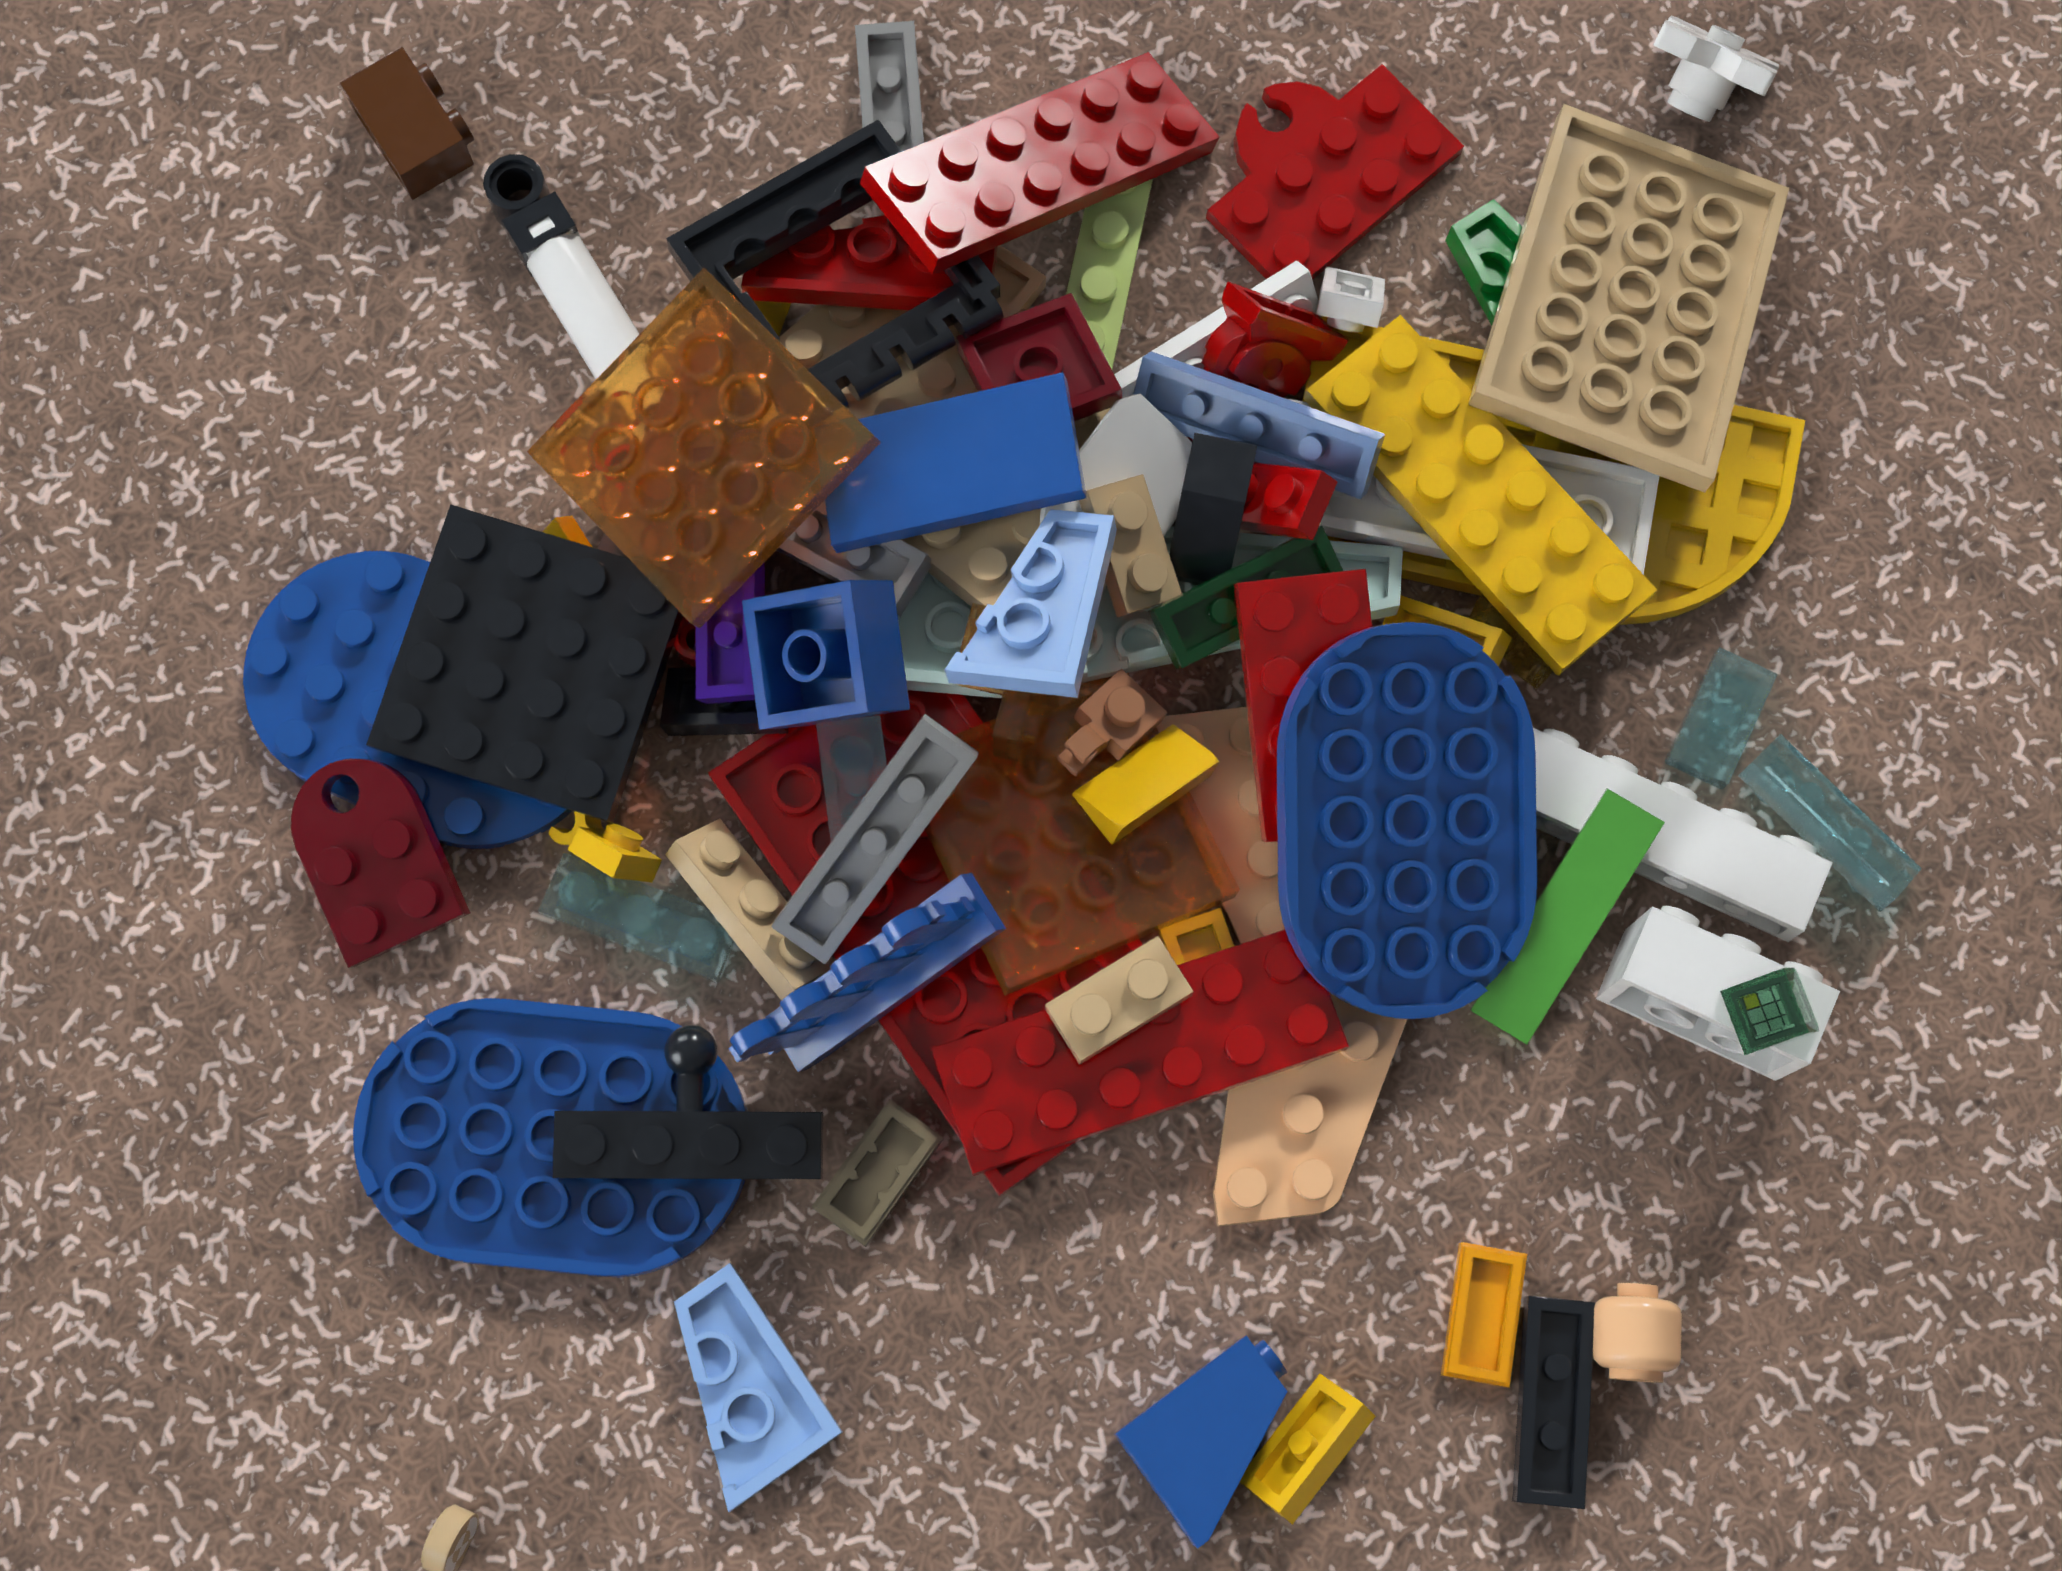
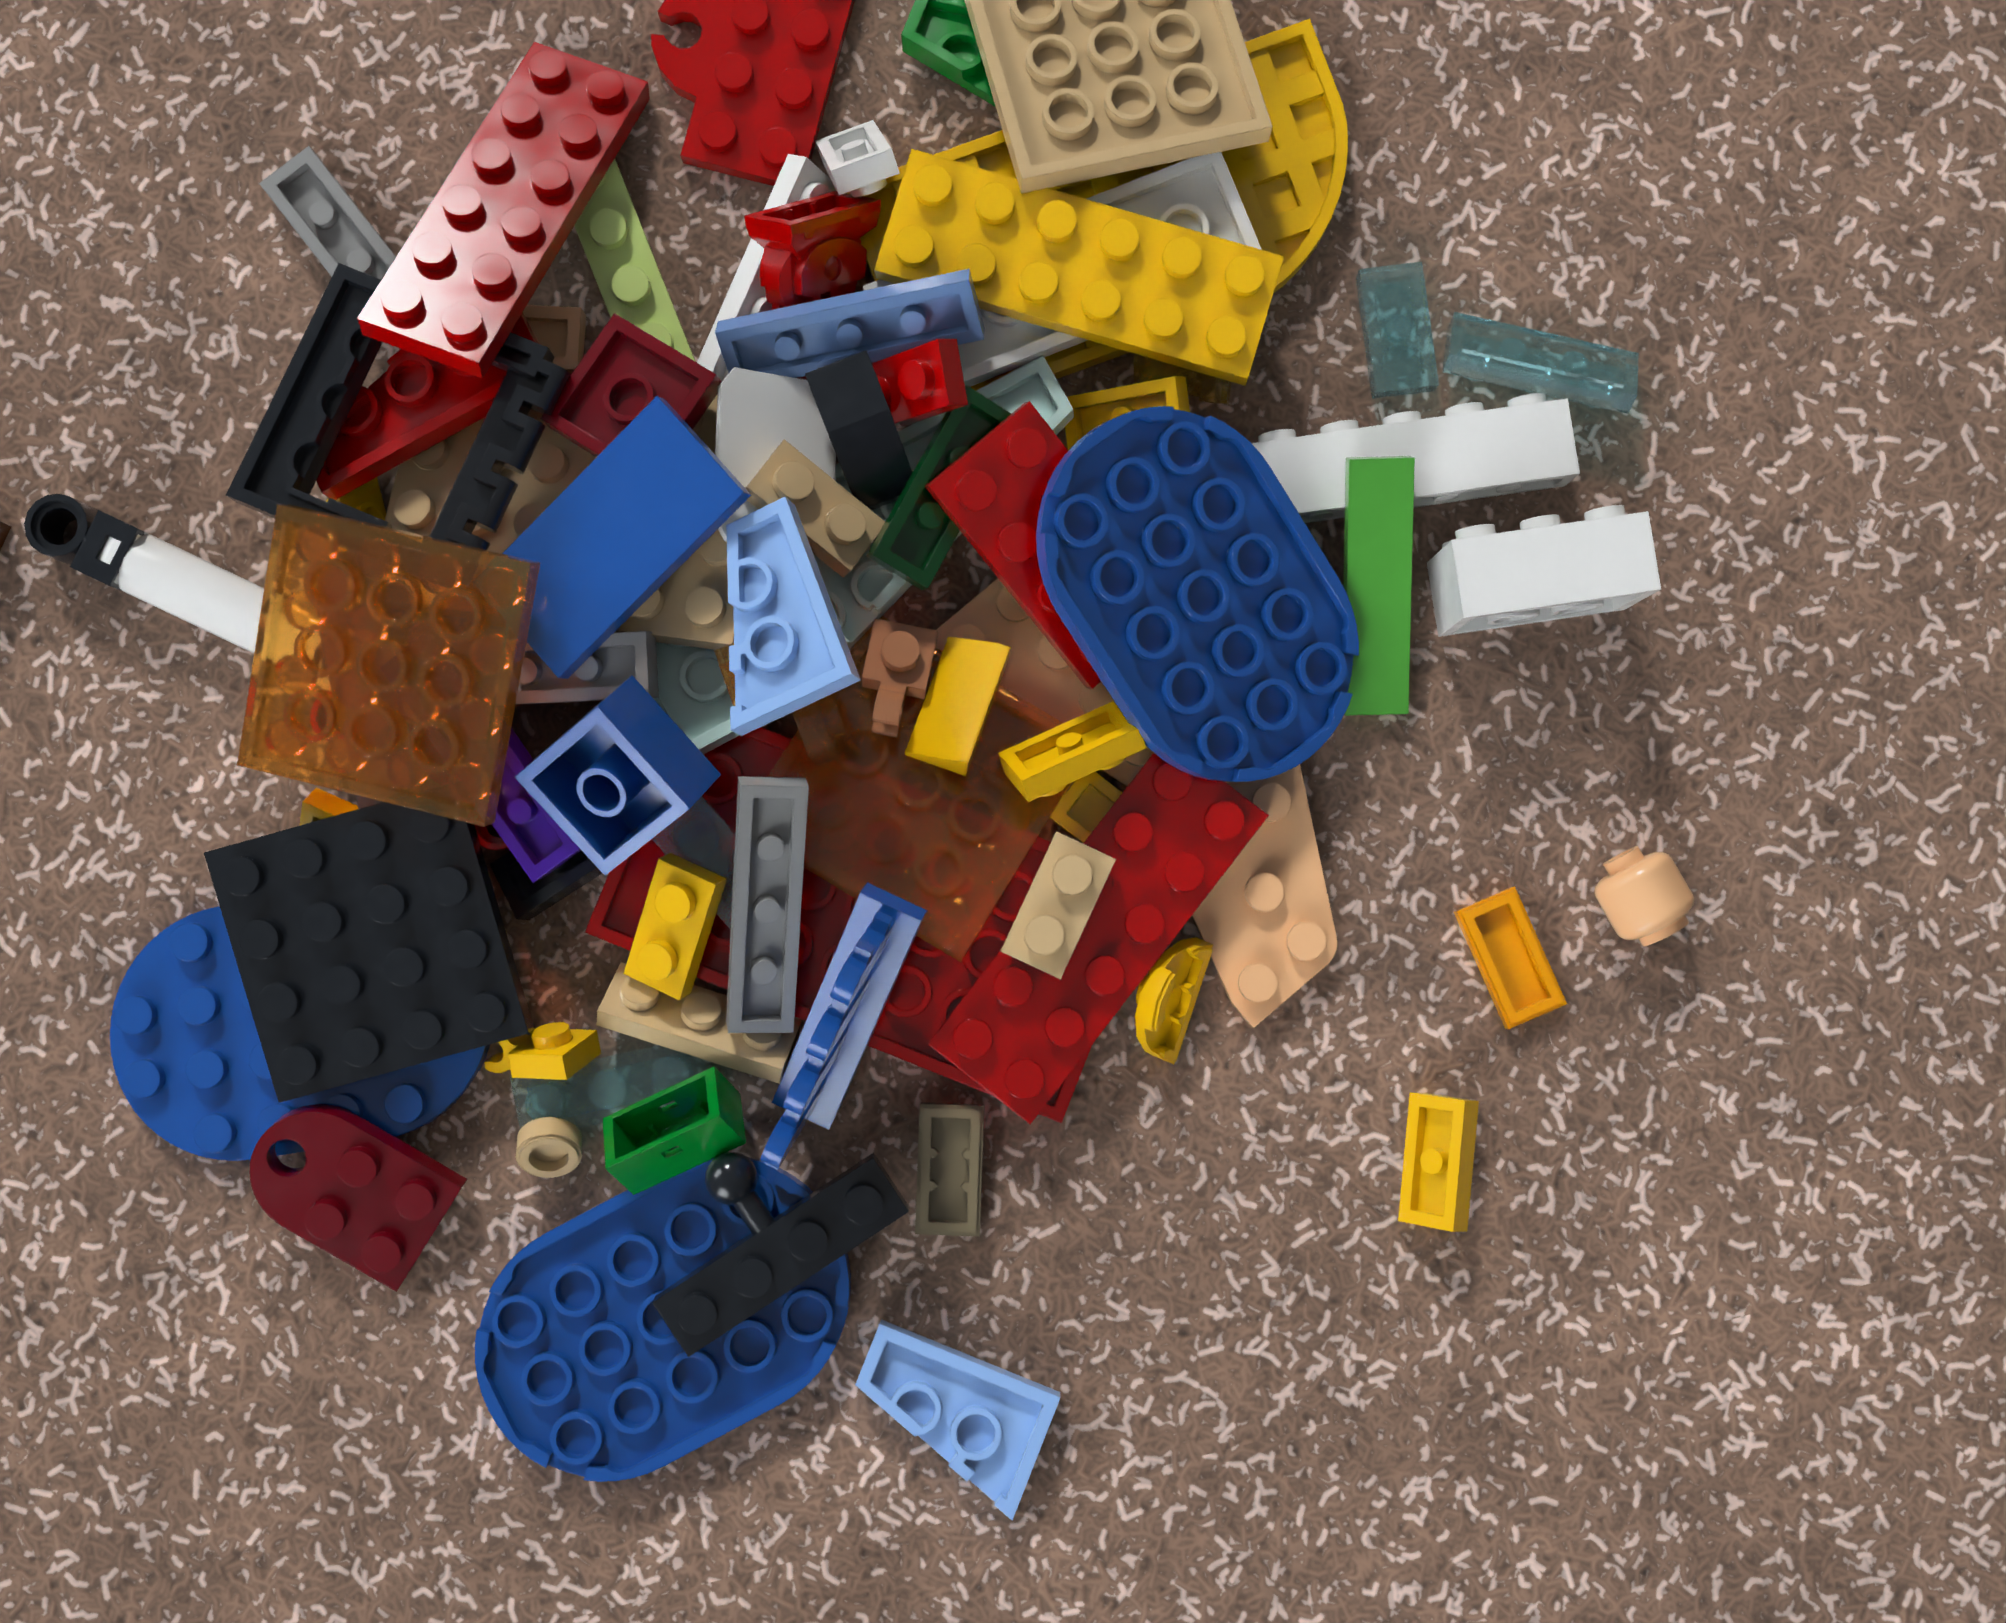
camera: 25 degrees left, 10 degrees up
(556, 930) = (549, 1147): none -> tan tile
(641, 970) = (700, 1121): none -> green piece
(786, 811) = (674, 926): none -> yellow plate
(1161, 1150) = (1169, 996): none -> yellow plate
(1194, 876) = (1071, 752): none -> yellow plate
(1206, 1433) = (1352, 1204): blue slope -> none
(1554, 1402) = (1610, 993): black plate -> none
(1769, 1010) = (1603, 567): clear green slope -> none

